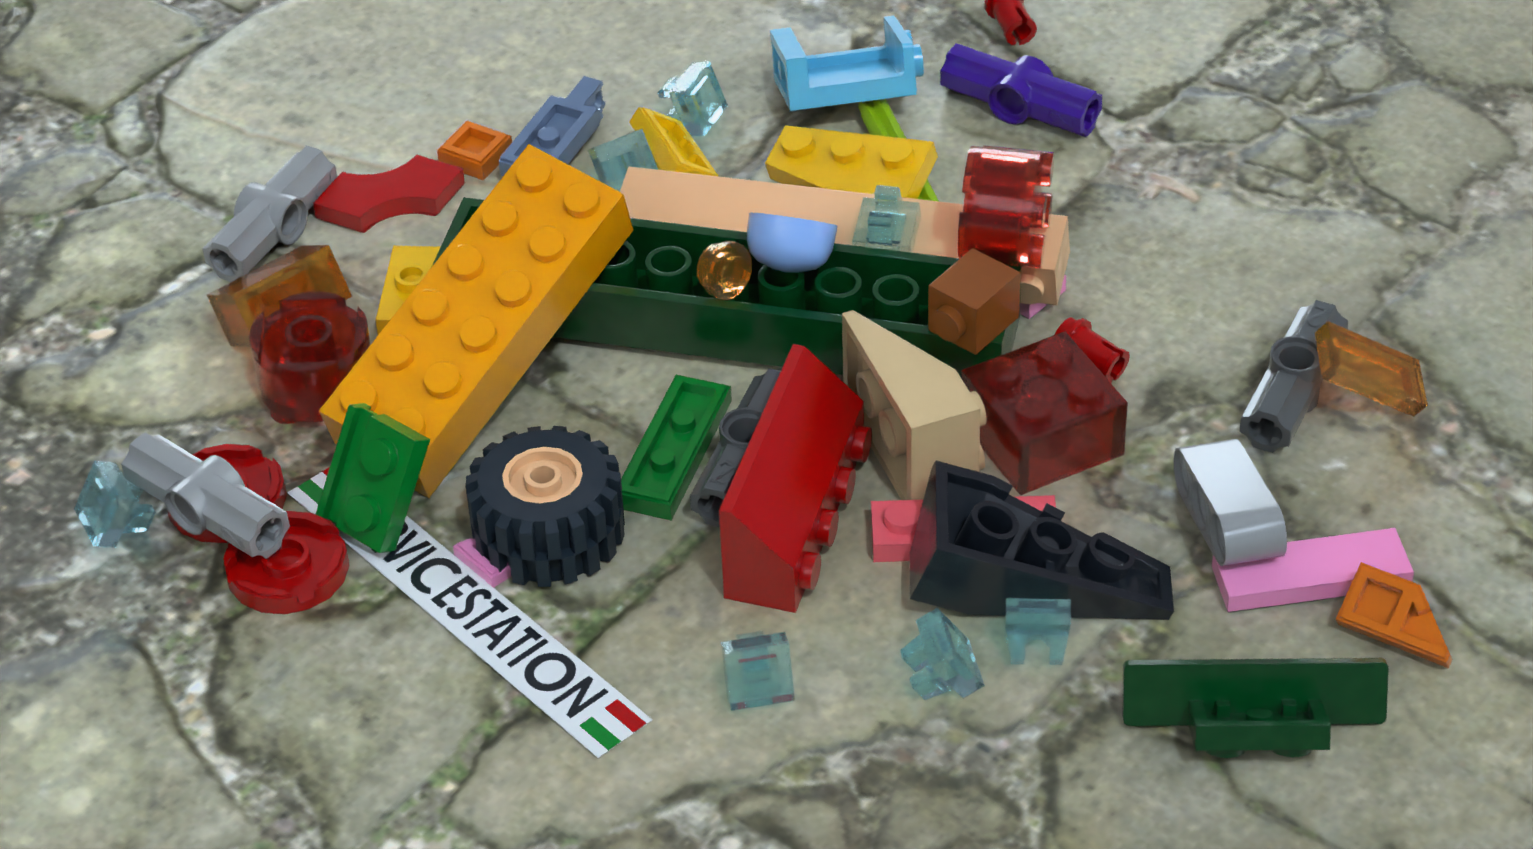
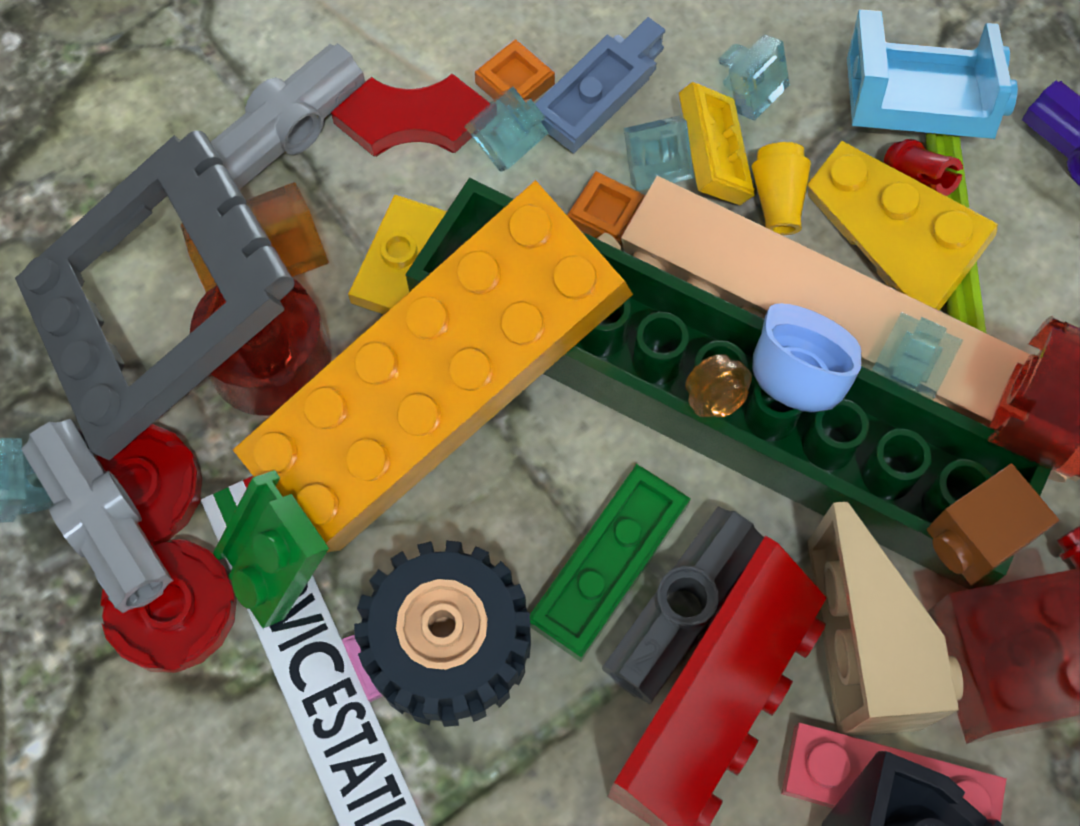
camera: 15 degrees right, 25 degrees up
(167, 400) = (232, 249): none -> dark grey hinge
(479, 172) = (507, 128): none -> clear light blue tile
(739, 155) = (781, 183): none -> yellow cone
(863, 122) = (924, 165): none -> red pin

